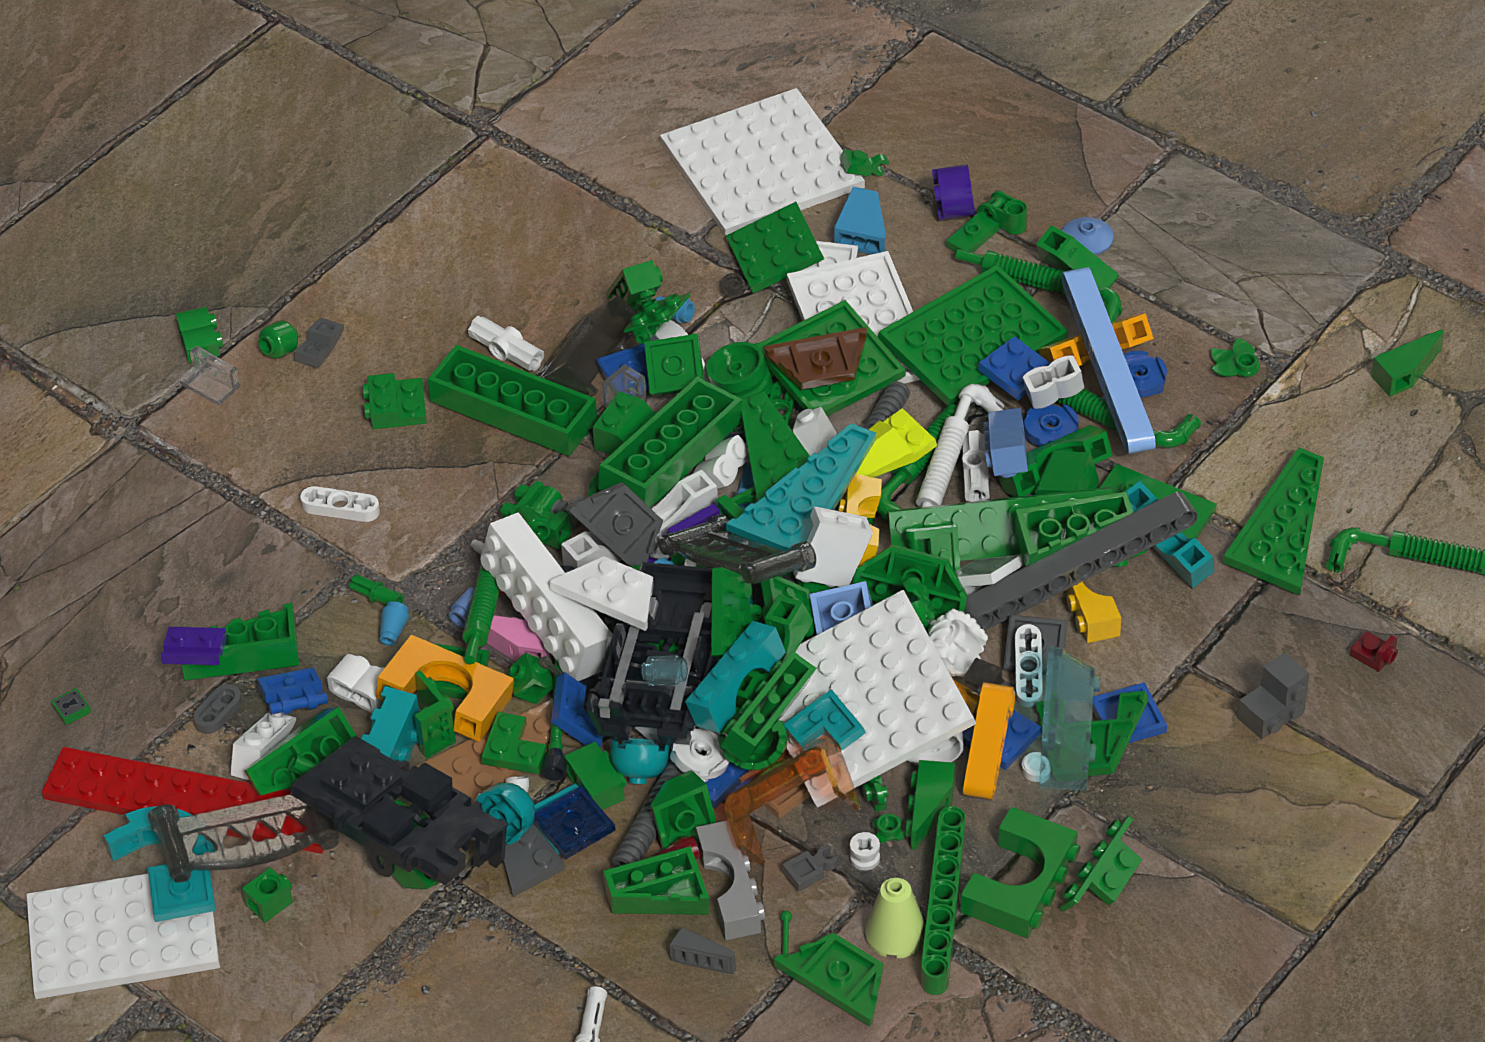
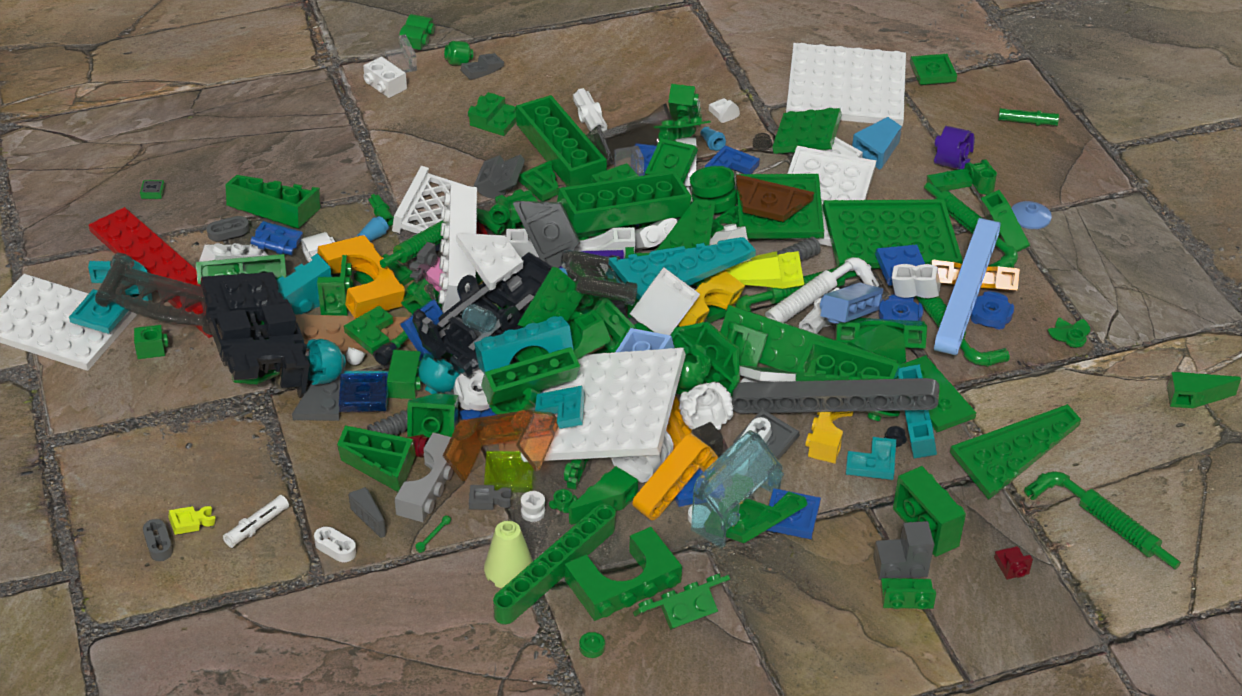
camera: 30 degrees right, 5 degrees down
(193, 645) = (236, 181): dark purple plate -> none
(218, 415) = (385, 77): none -> white brick
(326, 497) = (399, 147): white beam -> none
(402, 557) = (415, 193): none -> white fence
(479, 479) = (498, 175): none -> dark grey brick
(508, 627) = (425, 259): none -> dark grey plate
(529, 461) = (540, 181): none -> green wing
(663, 260) = (724, 110): none -> white tile
(695, 1008) = (336, 542): none -> white beam
(717, 325) = (734, 160): none -> blue plate
(804, 826) = (508, 470): none -> clear neon green plate
(838, 974) = (443, 572): green wing -> none
(844, 96) = (933, 69): none -> green plate
(858, 163) = (908, 109): green plate -> none
(1004, 107) = (1028, 117): none -> green pin
(1049, 964) = (592, 645): none -> green tile
(1159, 573) = (897, 433): none -> black plate
(1165, 613) = (877, 464): none -> teal plate
(1259, 634) = (923, 499): none -> green brick
(1303, 738) = (907, 593): none -> green bracket

